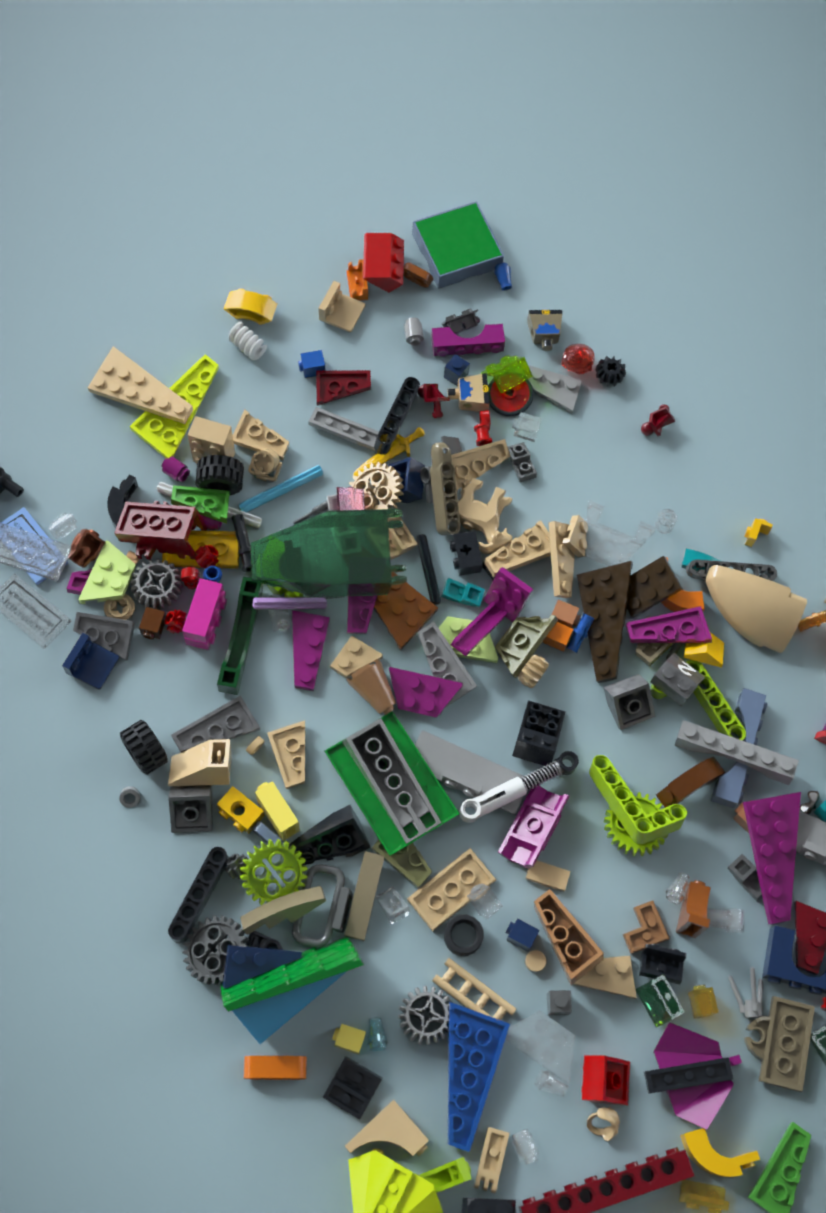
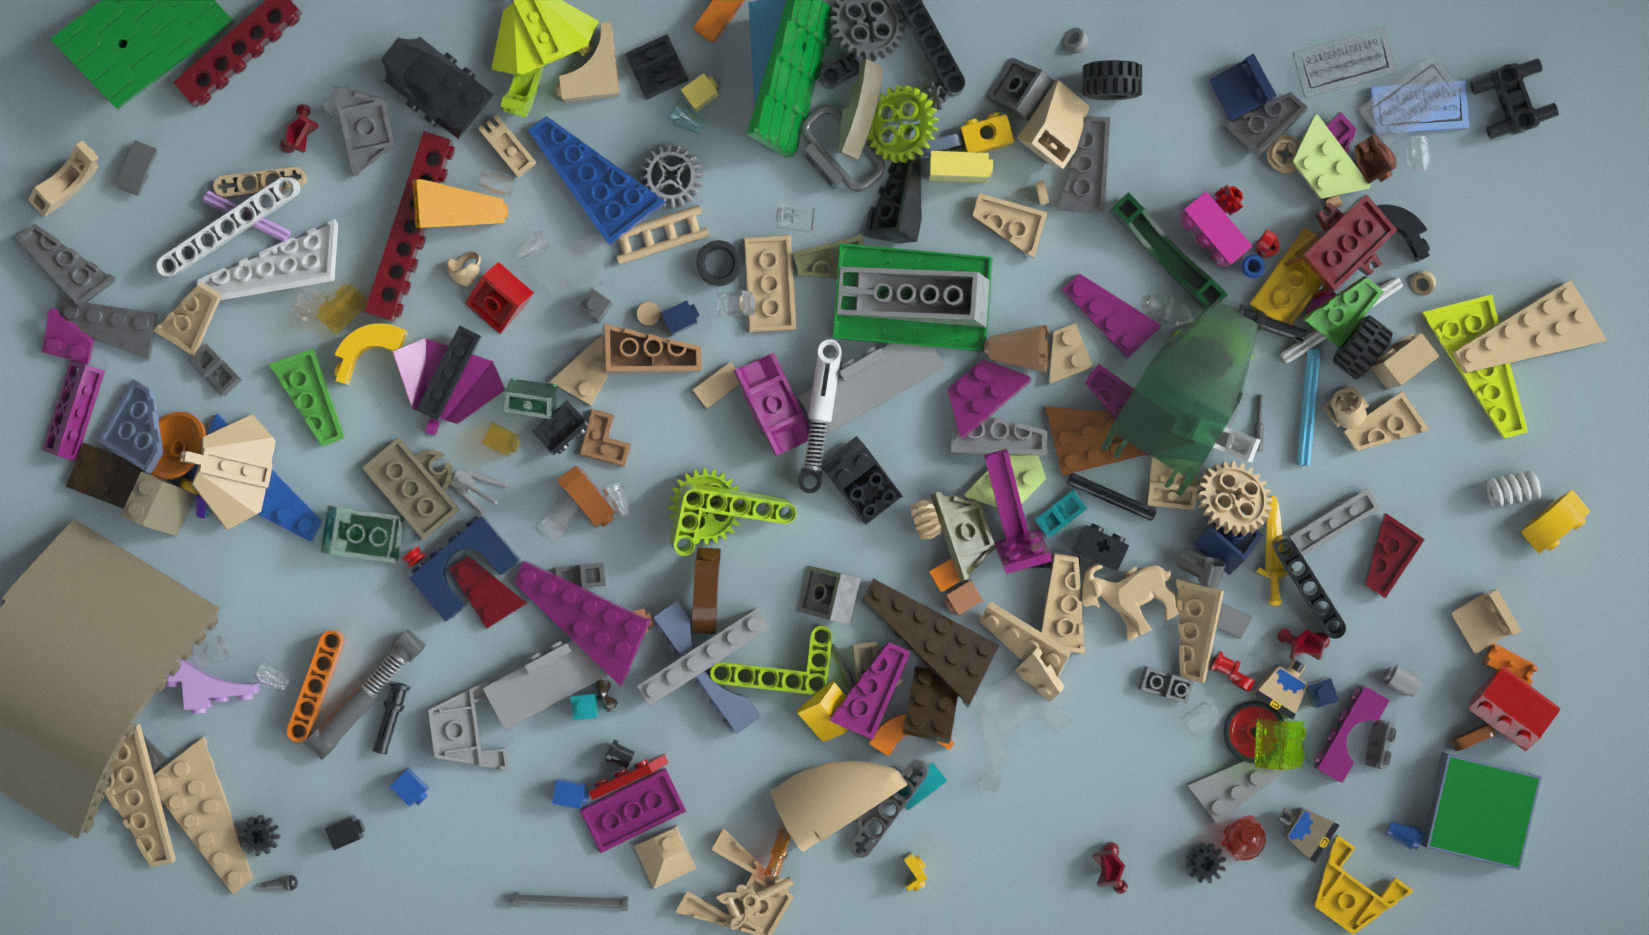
camera: 130 degrees right, 20 degrees up
(143, 472) = (1427, 276): none -> tan piece
(152, 623) = (1243, 174): reddish brown brick -> none
(167, 574) = (1286, 186): light grey gear -> none
(175, 469) = (1406, 310): magenta brick -> none
(207, 556) = (1278, 274): red gear -> none
(249, 962) = (830, 43): dark blue wing -> none
(289, 603) = (1169, 321): lavender axle -> none
(311, 363) = (1437, 540): blue brick -> none
(350, 498) = (1232, 458): clear pink piece -> none
(364, 896) = (820, 196): dark tan slope -> none
(442, 499) = (1173, 568): dark tan piece -> none
(567, 283) = (1349, 900): none -> yellow wing
(570, 1165) = (450, 206): none -> light orange slope
(580, 633) = (933, 598): blue pin -> none
(677, 679) = (814, 656): flat silver slope -> none

